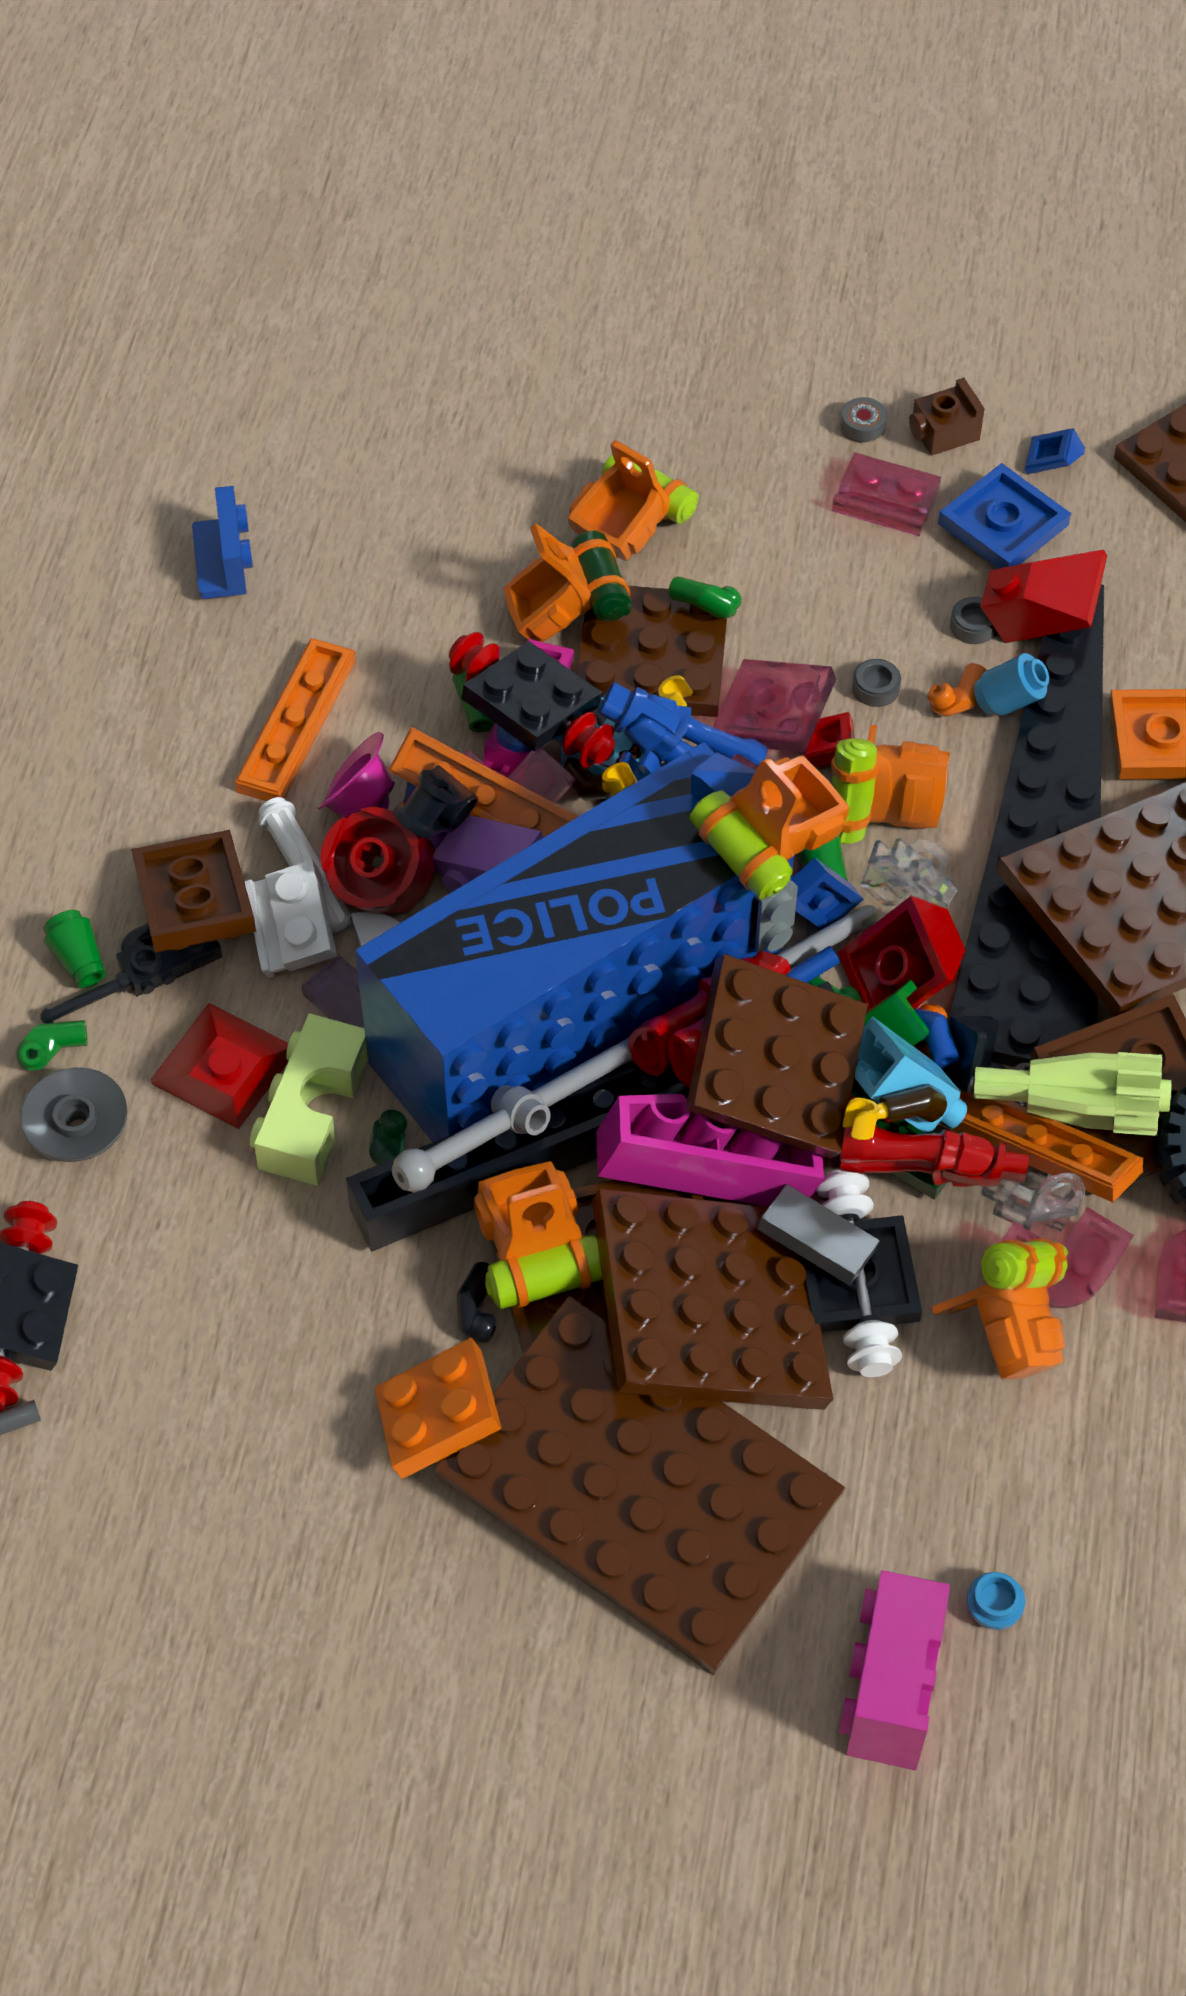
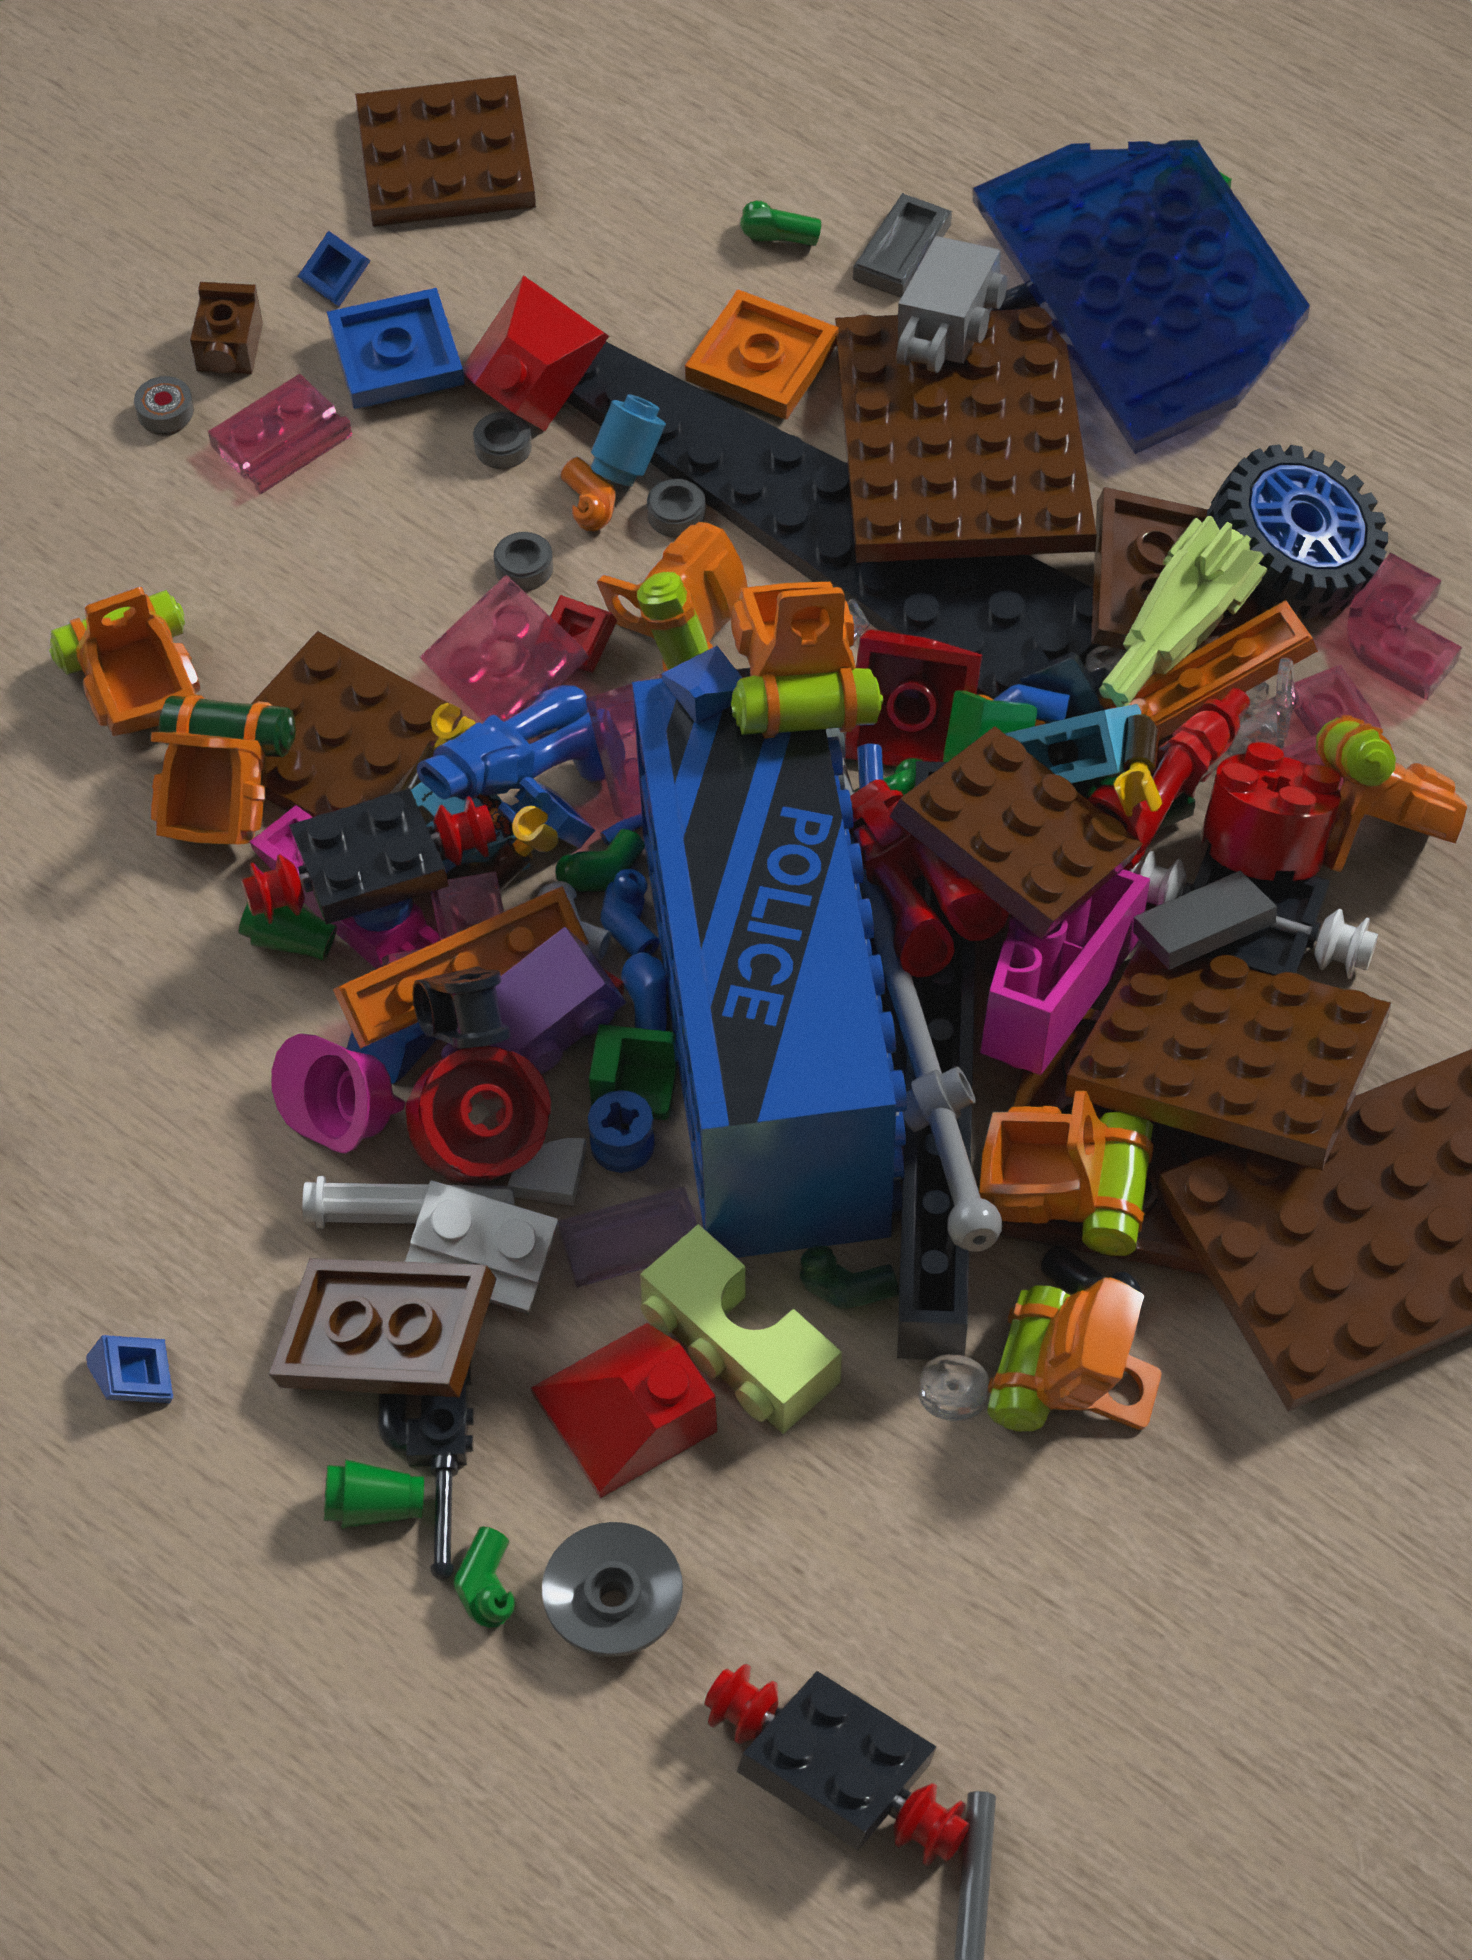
camera: 60 degrees left, 0 degrees up
(101, 779) = (131, 1369): none -> blue slope
(295, 721) = (188, 1130): orange tile -> none
(340, 1251) = (953, 1387): none -> clear tile
(392, 1306) = (1070, 1355): none -> orange piece
(437, 1408) = (1220, 1366): orange plate -> none
(710, 598) = (334, 640): green arm -> none
(942, 1237) = (1271, 813): none -> red brick
(988, 749) = (675, 506): none -> dark grey tile

